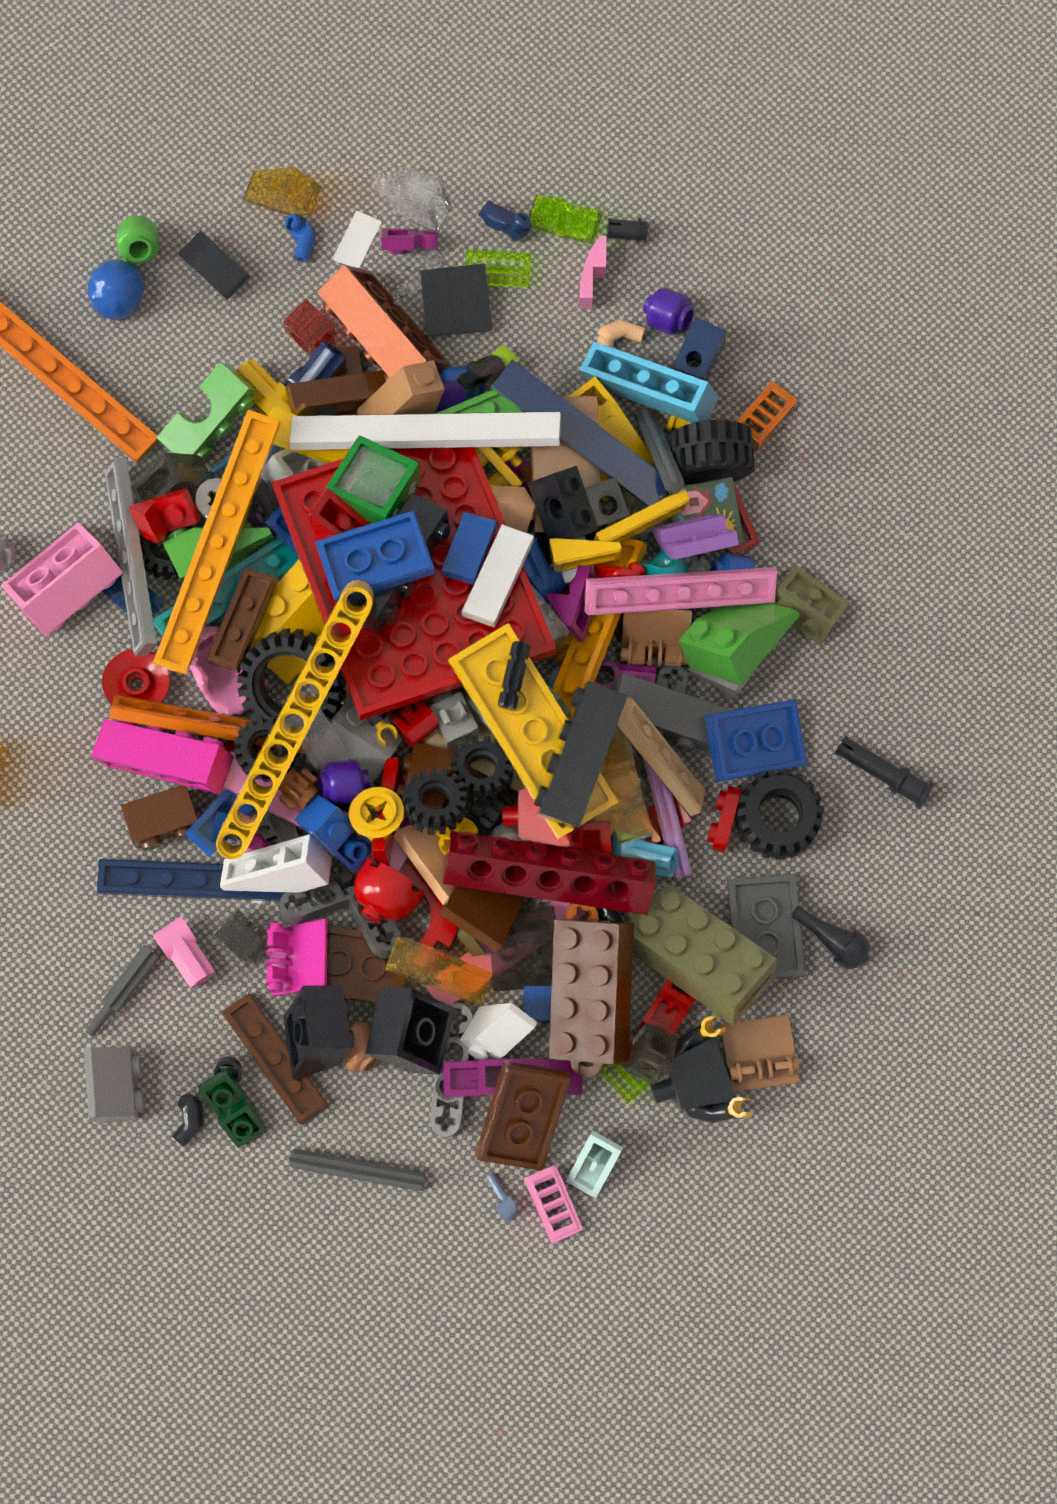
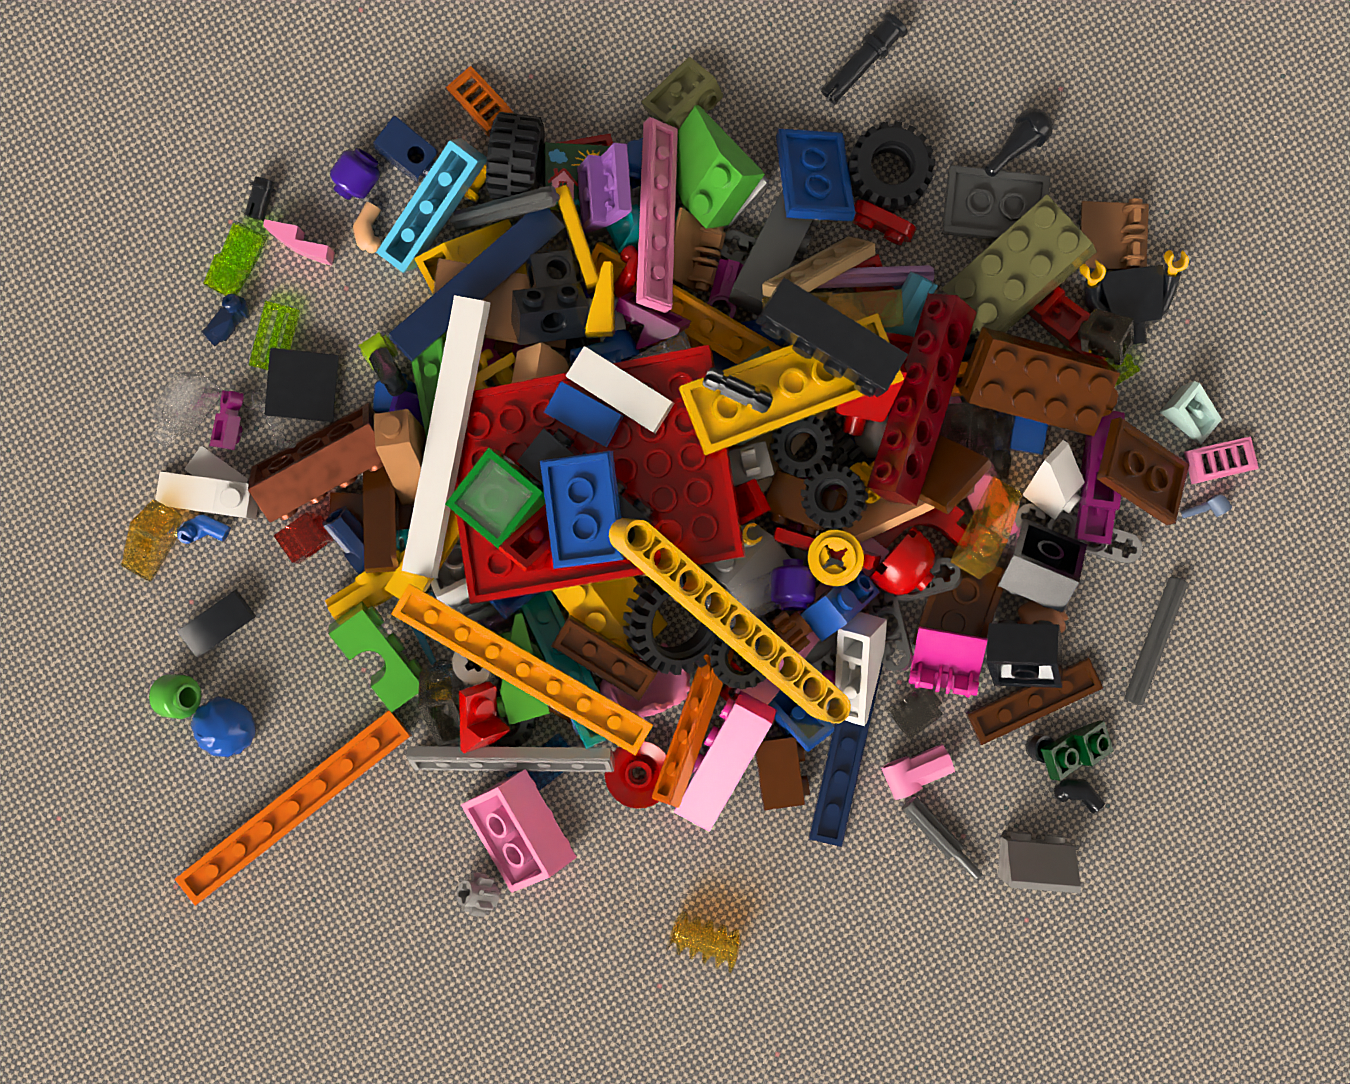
camera: 80 degrees left, 10 degrees up
(333, 232) = (206, 495): none -> white slope

